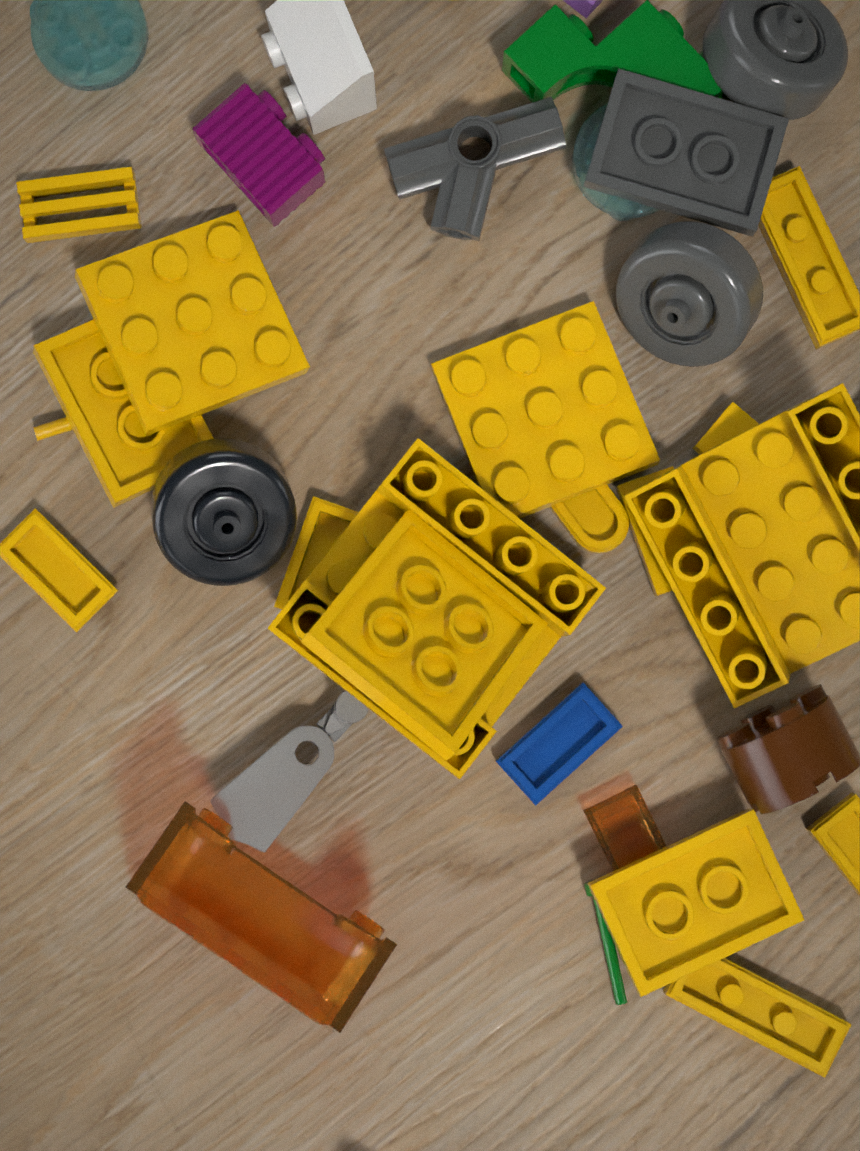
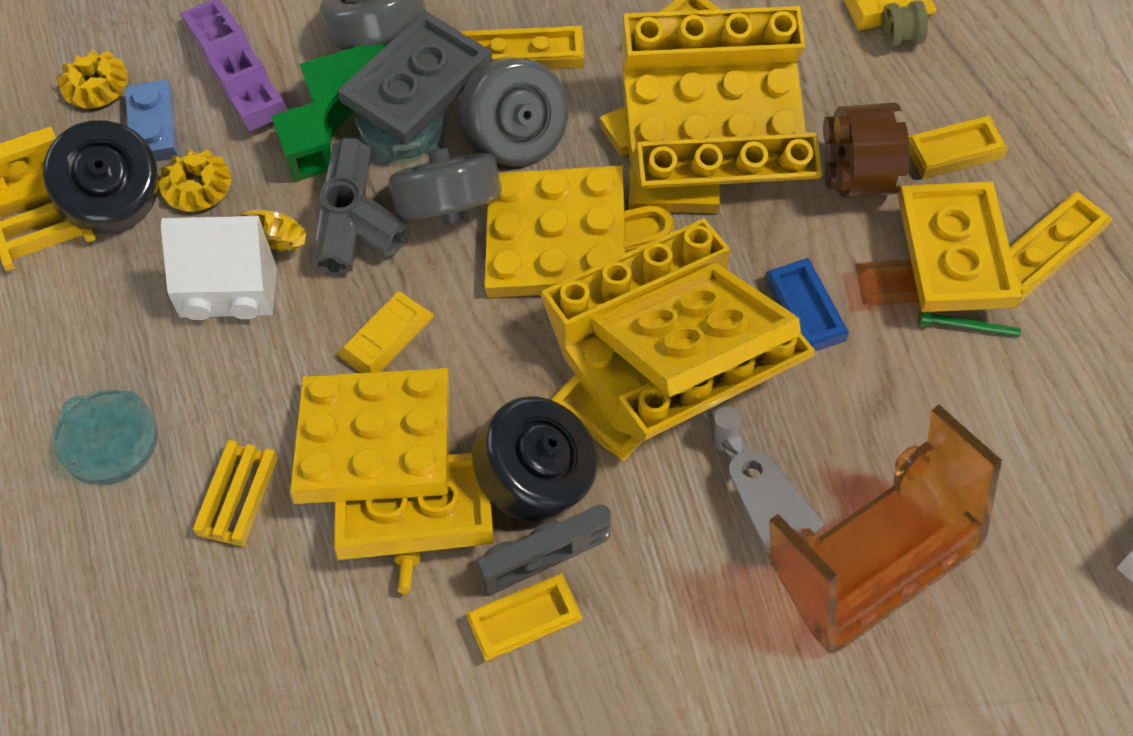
camera: 65 degrees left, 25 degrees down
(139, 565) = (546, 547): none -> dark grey hinge
(261, 153) = (268, 344): magenta brick -> none
(335, 276) = (385, 334): none -> yellow tile
(398, 81) = (280, 230): none -> yellow gear
(545, 259) = (445, 186): none -> dark grey wheel

